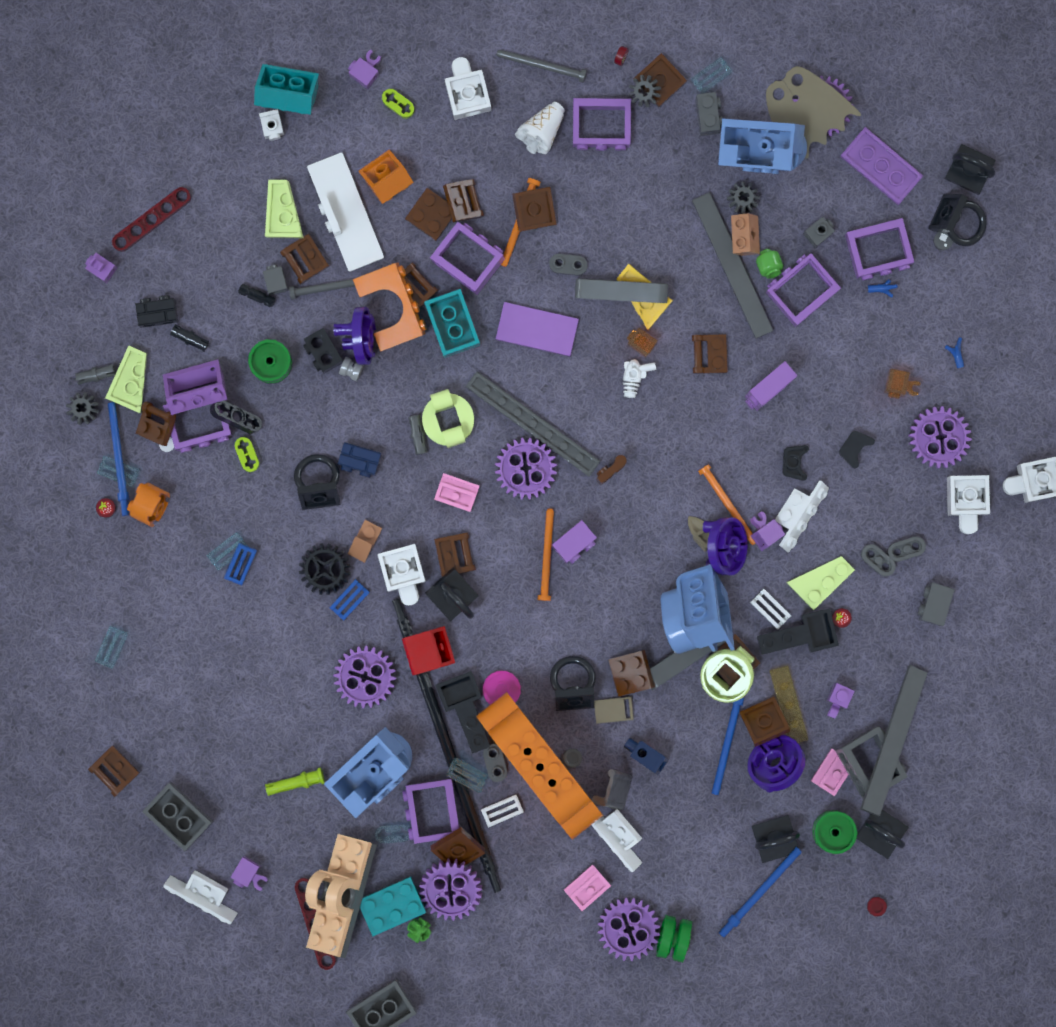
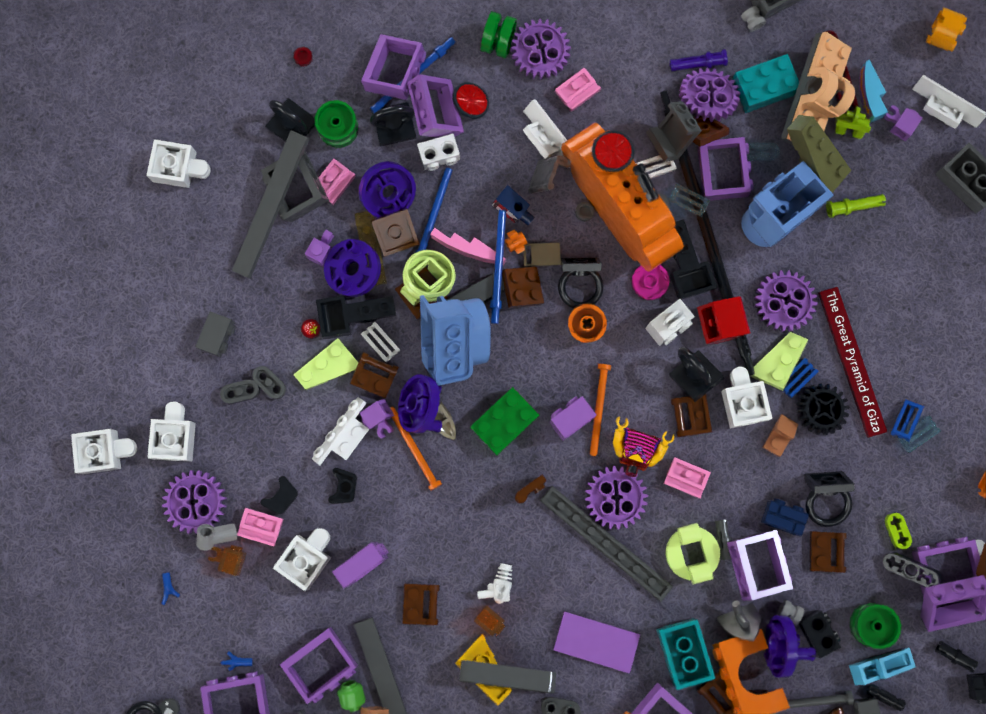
camera: 170 degrees left, 5 degrees down
(206, 975) = (946, 29): none -> light orange brick
(261, 324) = (882, 666): none -> medium azure slope
(282, 903) = (871, 93): none -> medium azure slope
(295, 620) = (852, 362): none -> dark red tile
(300, 869) = (853, 120): none -> lime hips
(321, 430) = (821, 551): none -> reddish brown plate
(339, 826) = (818, 151): none -> olive wedge
(367, 615) = (780, 361): none -> yellowish green wing
(398, 357) = (742, 621): none -> flat silver shield
(400, 405) = (743, 569): none -> window
(407, 977) = (753, 19): none -> light grey wheel
(418, 930) = (741, 59): bright green gear -> none
(452, 929) = (706, 60): none -> dark purple pin
(481, 644) = (669, 322): none -> white brick
(487, 842) = (674, 132): none -> dark grey panel
(507, 517) = (637, 448): none -> torso
(522, 767) = (645, 182): none -> black axle
(555, 797) = (613, 151): none -> red wheel
(565, 650) = (587, 334): none -> orange brick
(640, 535) = (504, 421): none -> green brick
(641, 720) = (515, 241): none -> orange gear
(657, 652) = (495, 303): none -> blue bar
(683, 709) = (475, 249): none -> bright pink slope
(697, 868) = (471, 100): none -> red wheel
(728, 814) = (437, 147): none -> white brick
(746, 850) = (424, 110): none -> medium lavender window
(776, 568) = (371, 381): none -> reddish brown plate
(798, 903) = (378, 58): none -> medium lavender window
(810, 665) = (353, 251): none -> dark purple piece
(825, 389) = (306, 560): none -> white brick
(873, 417) = (260, 527): none -> bright pink plate
(921, 405) = (209, 535): none -> light grey piece
(995, 778) = (175, 164): none -> white brick

